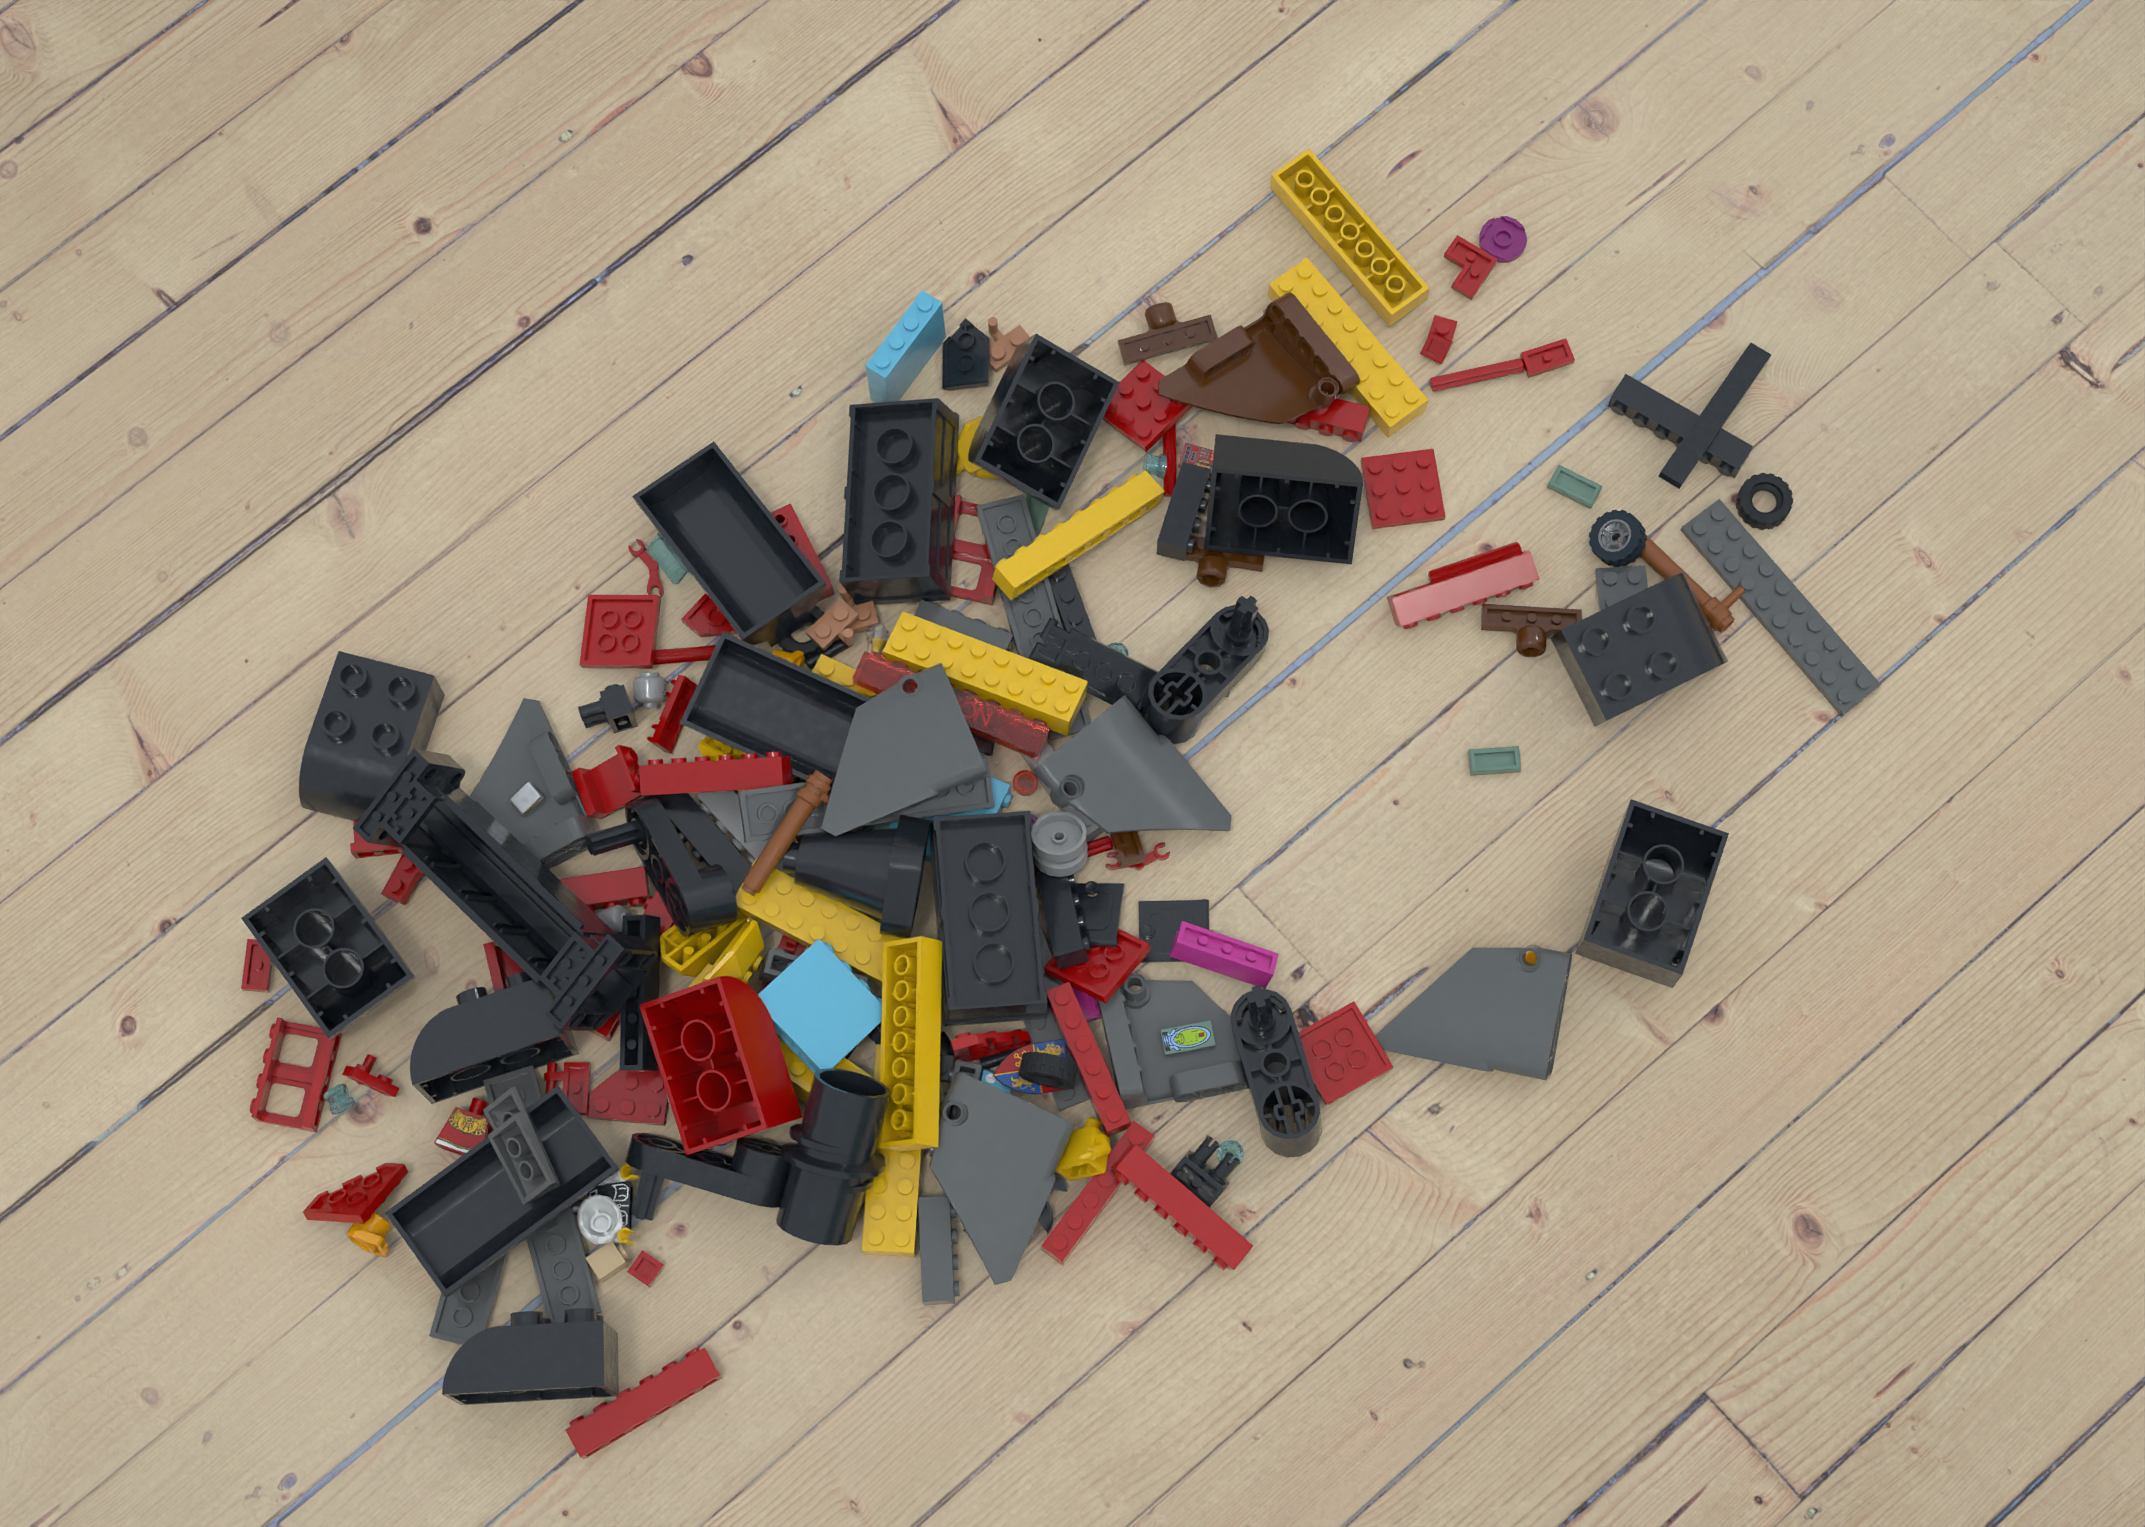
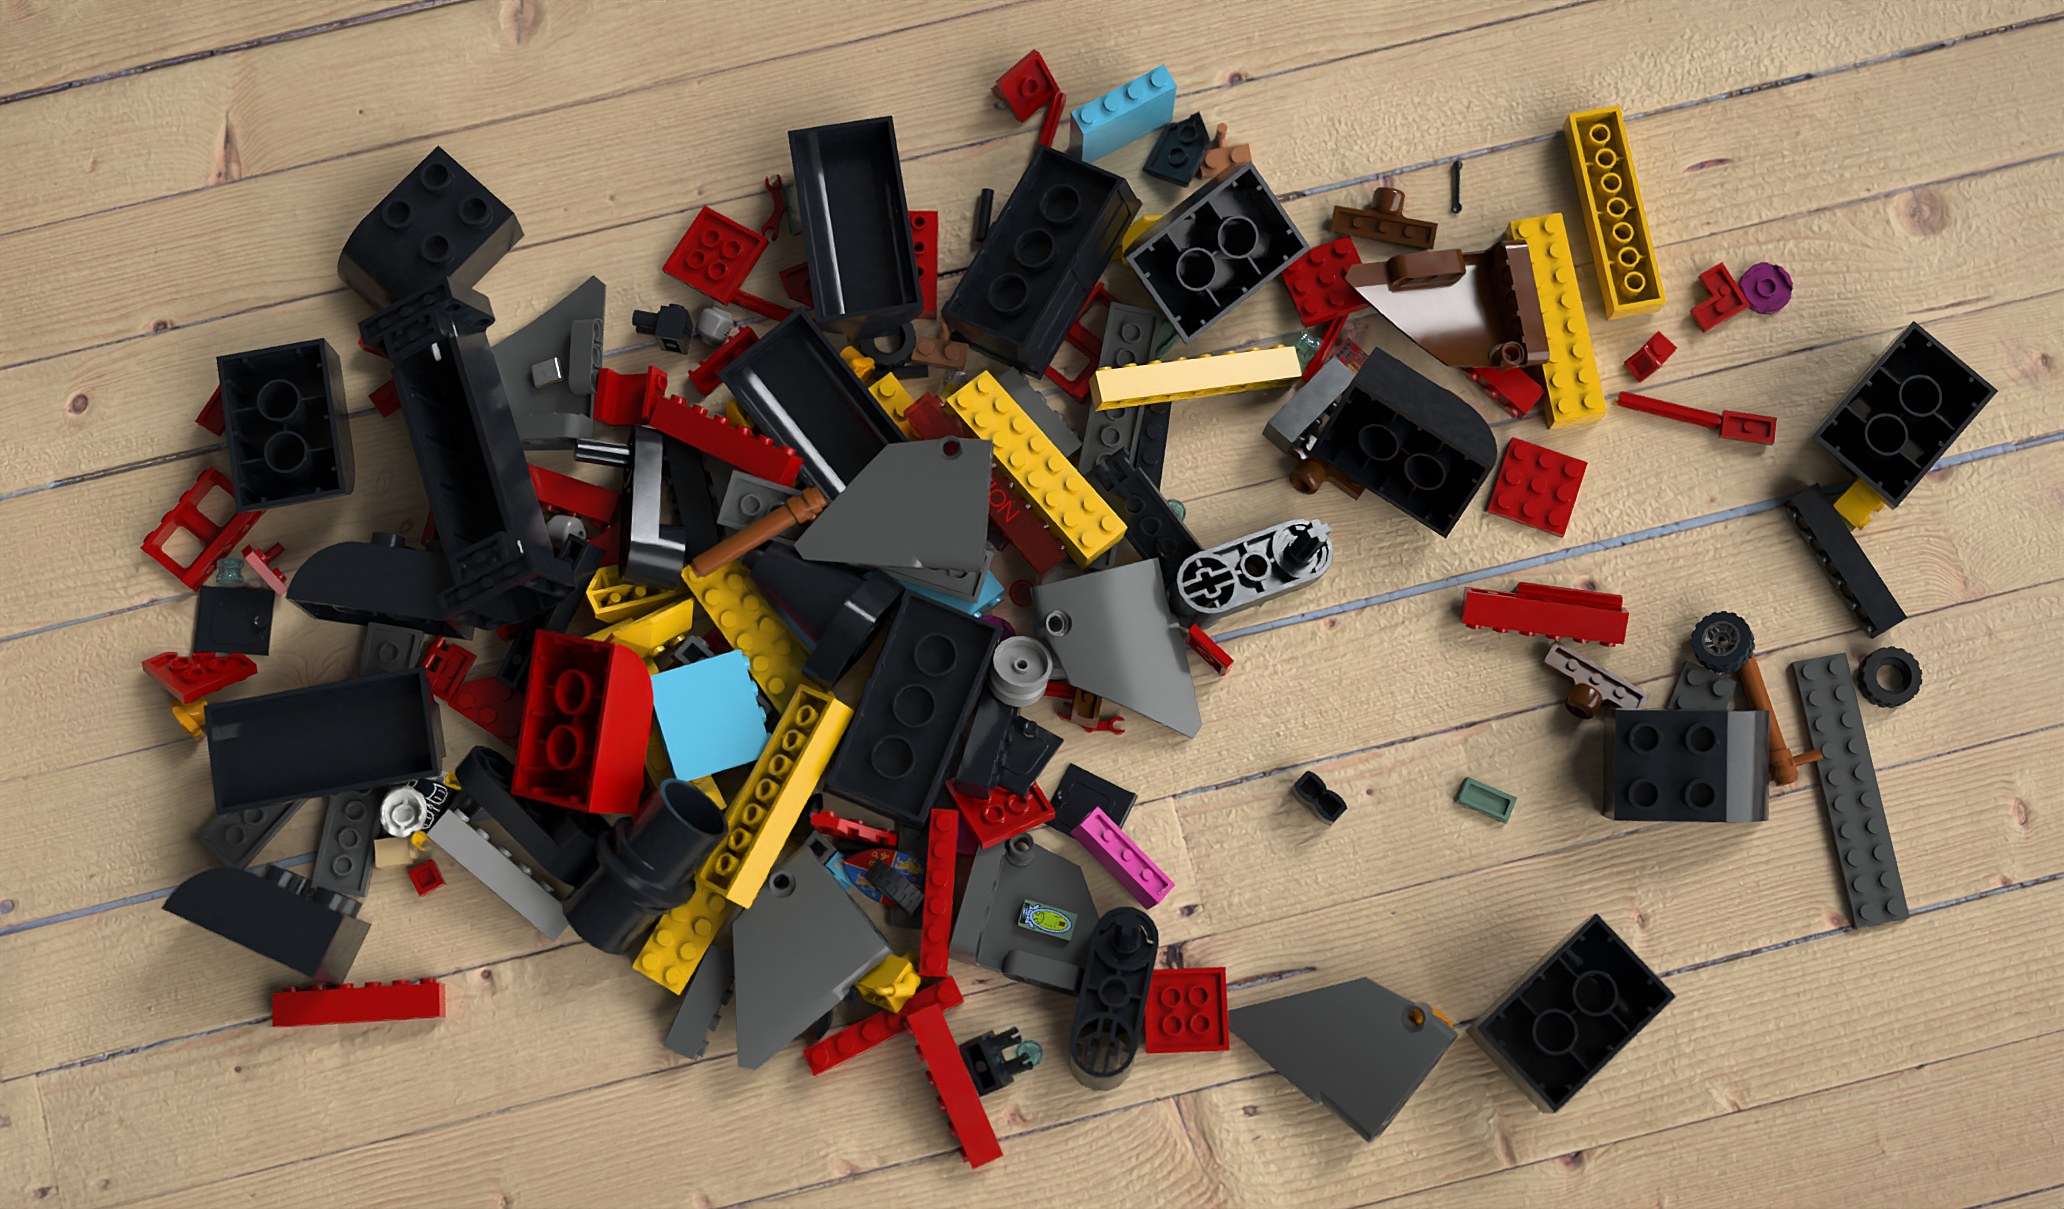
camera: 25 degrees right, 5 degrees up
(359, 1142) = (234, 620): none -> black container
(464, 1128) = (329, 660): torso -> none
(520, 1146) = (358, 708): dark grey slope -> none
(710, 1230) = (499, 872): none -> light grey brick
(810, 366) = (1026, 86): none -> red bracket
(829, 489) = (984, 214): none -> black piece
(834, 624) = (916, 350): nougat plate -> none
(846, 387) = (1052, 119): none -> red axle
(1205, 750) = (1209, 650): none -> red tile
(1218, 295) = (1457, 207): none -> black hinge
(1364, 827) = (1324, 803): none -> black brick
(1574, 486) = (1707, 569): sand green tile -> none
(1664, 285) = (1902, 414): none -> black brick
(1667, 371) = (1856, 505): none -> yellow brick
(1714, 415) = (1884, 568): black tile -> none

